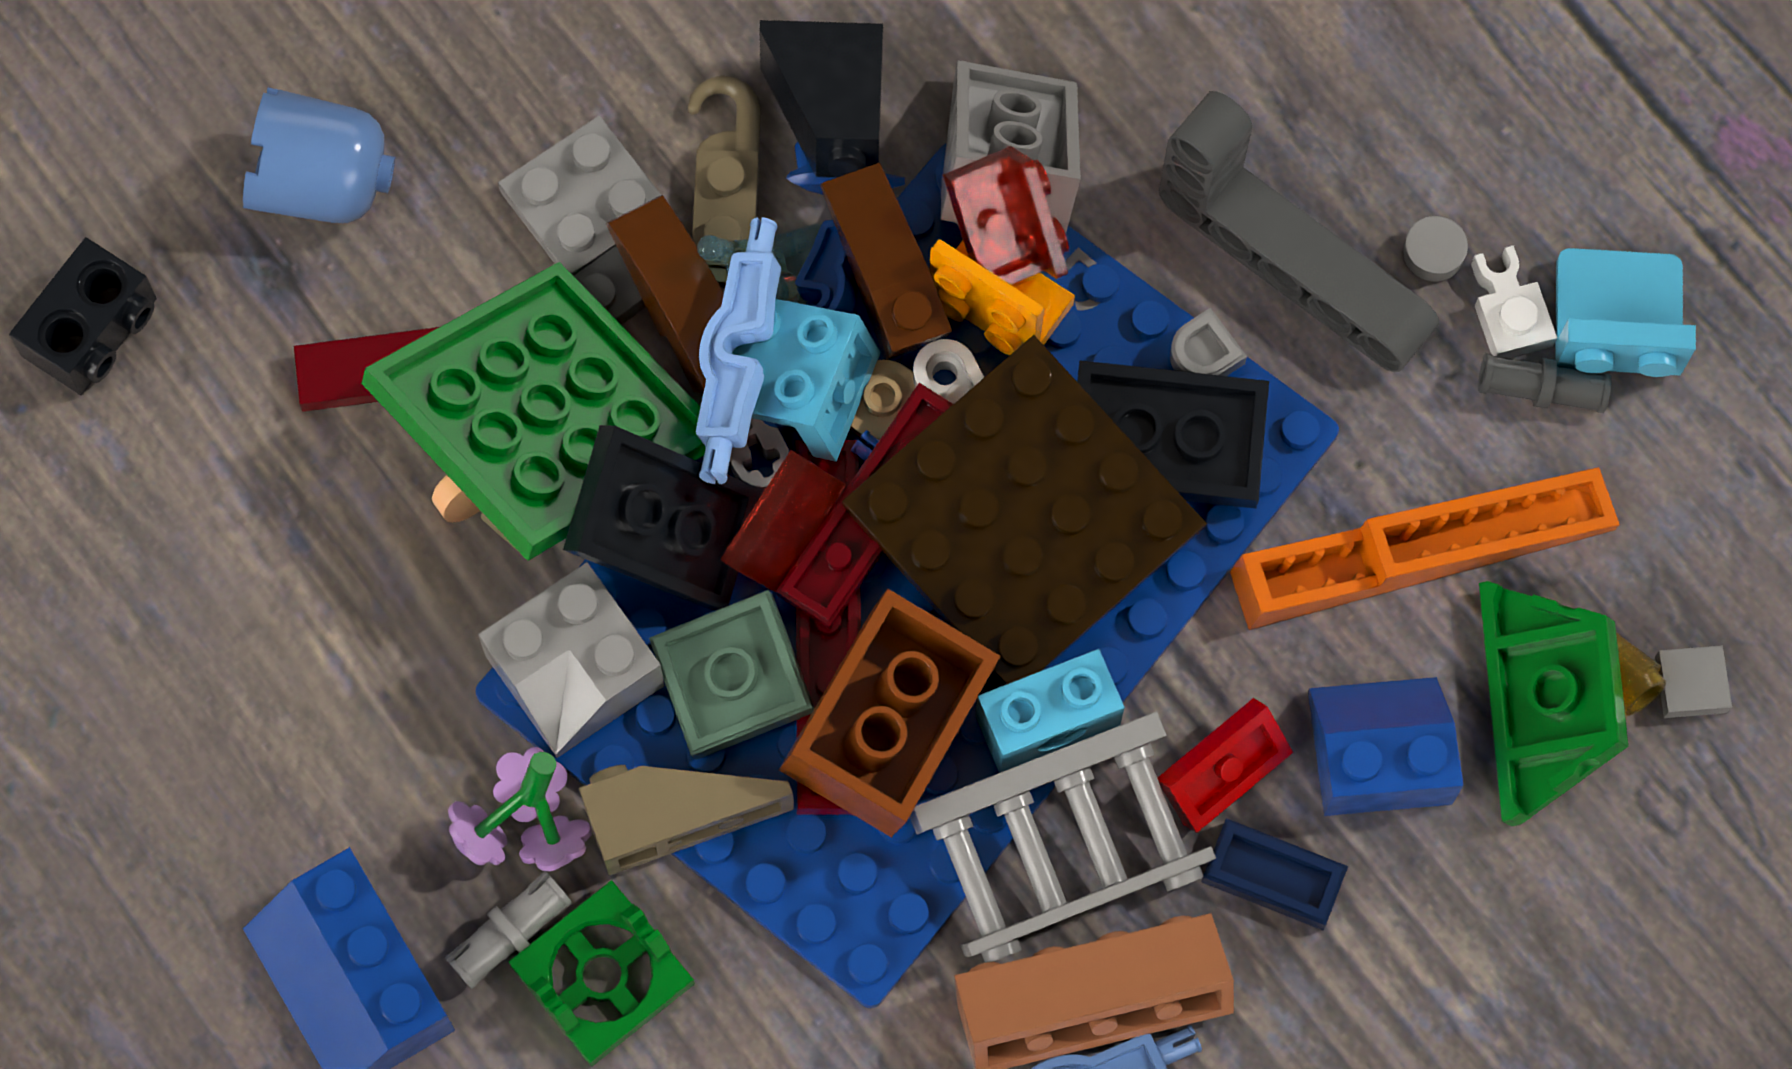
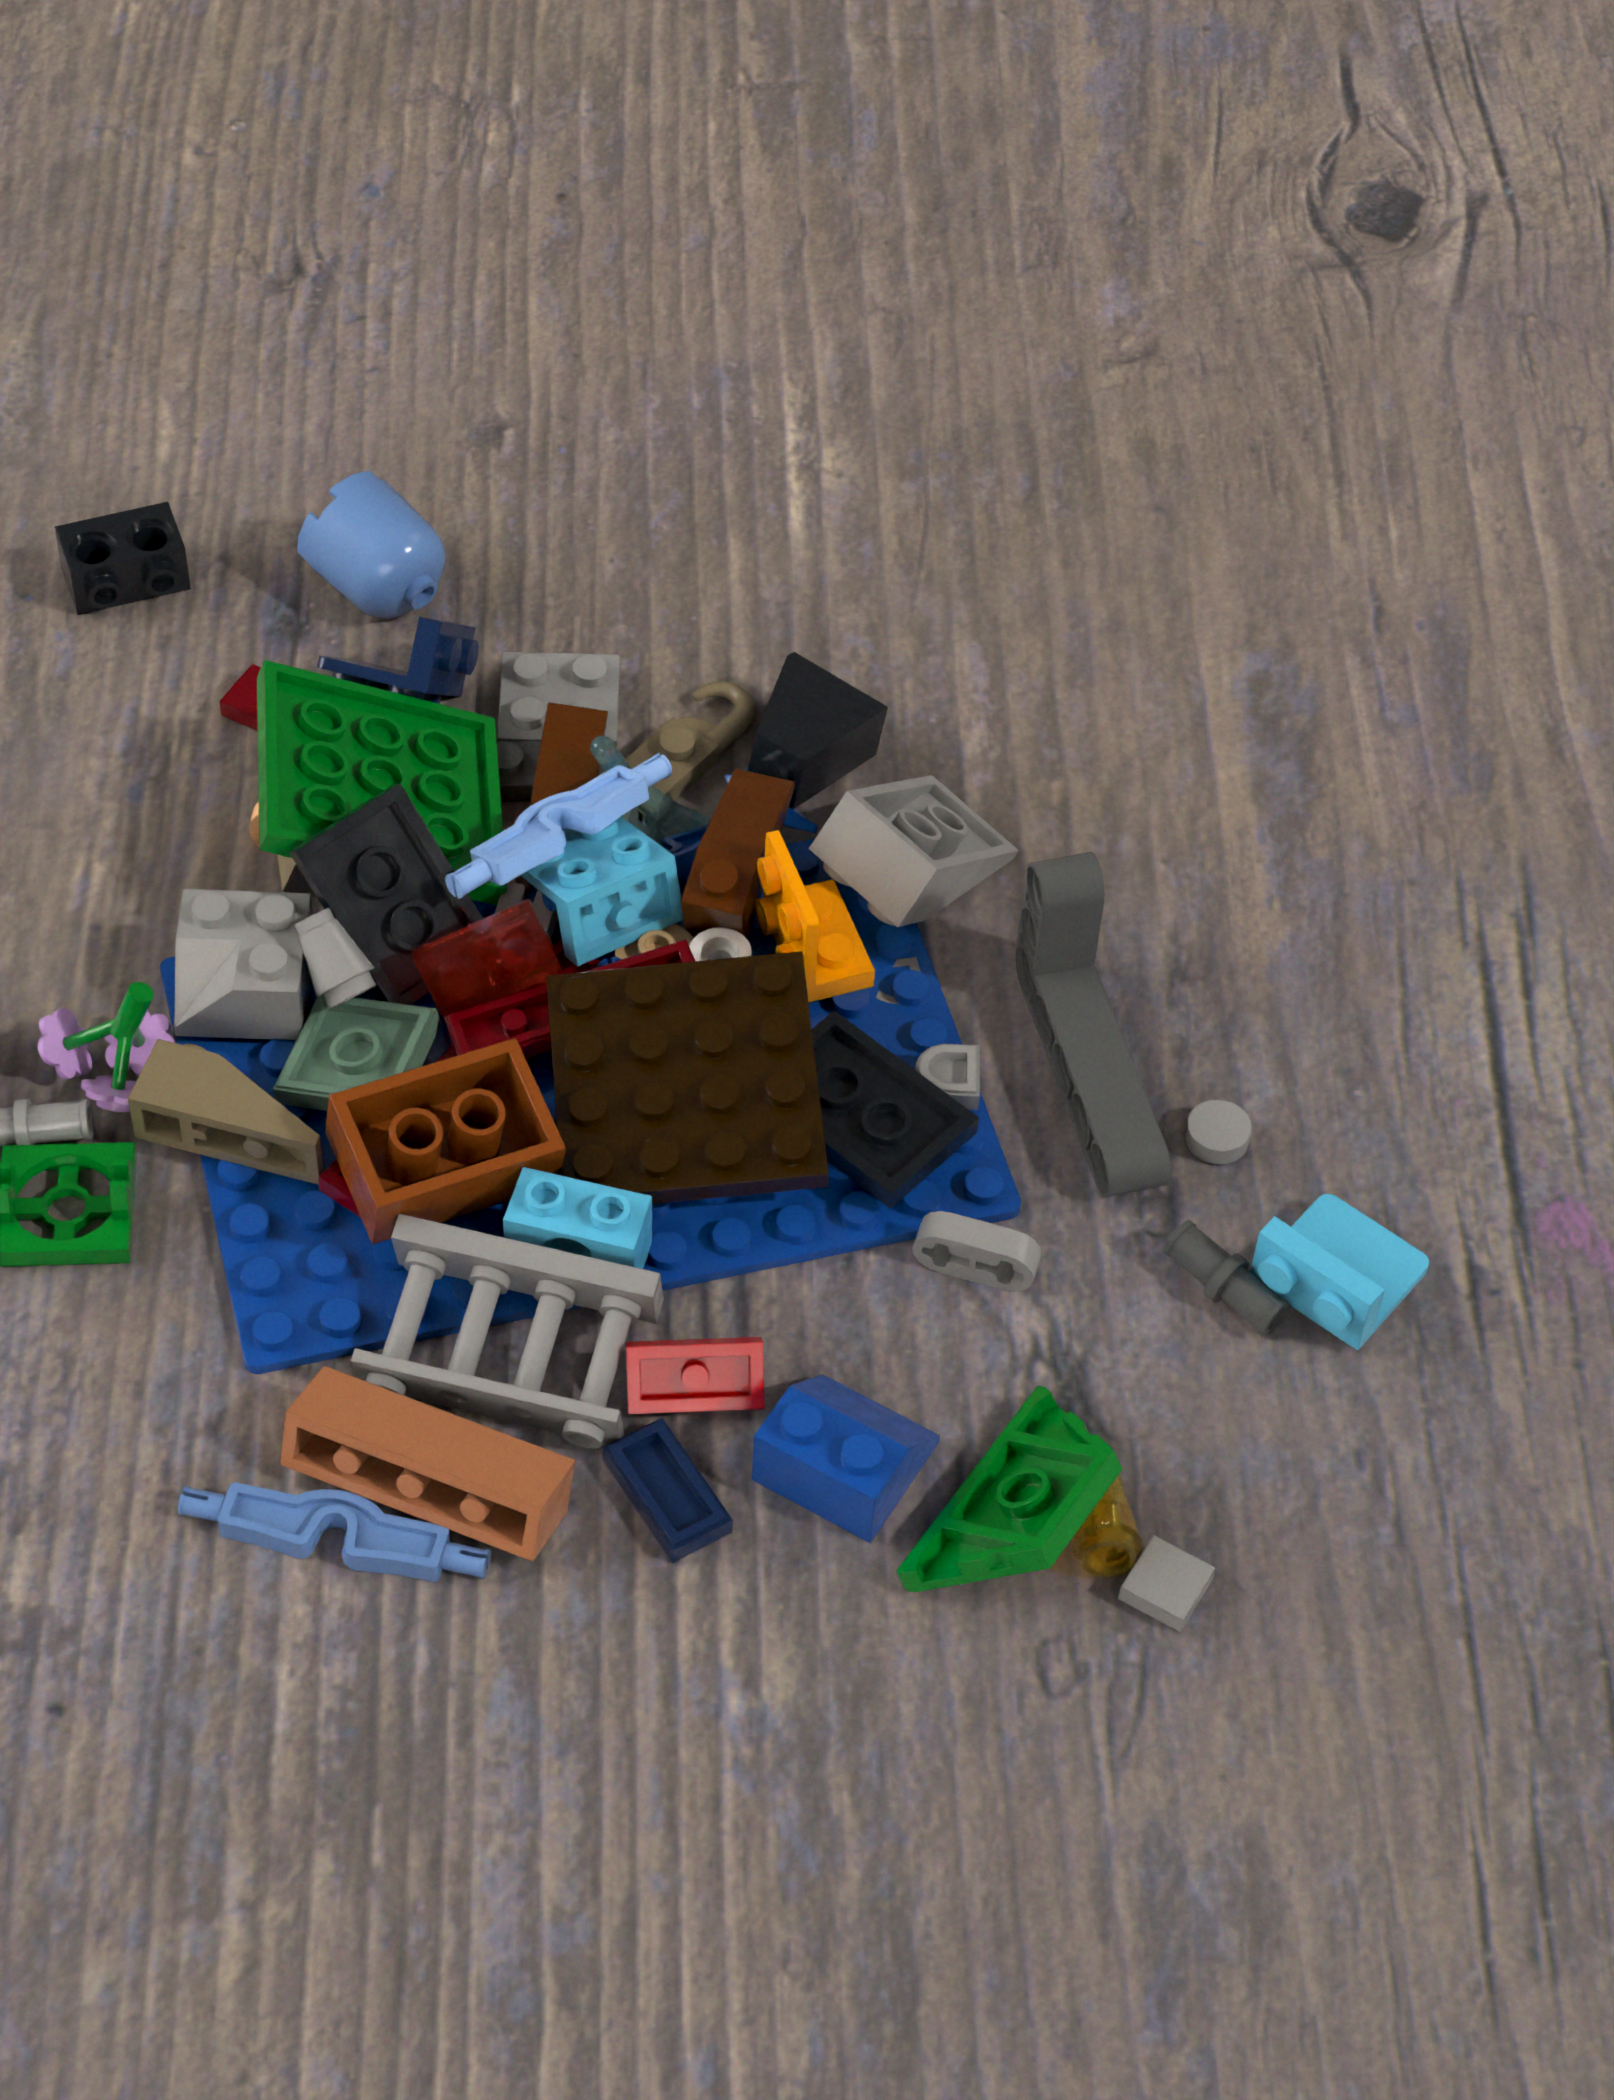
camera: 35 degrees right, 20 degrees down
(447, 278) = (437, 666): none -> dark blue bracket
(663, 612) = (333, 959): none -> light grey cone
(1007, 217) = (849, 859): clear red bracket -> none
(1345, 496) = (977, 1251): none -> light grey beam
(1420, 546) = (1015, 1331): orange slope -> none
(1511, 314) = (1245, 1209): white plate -> none

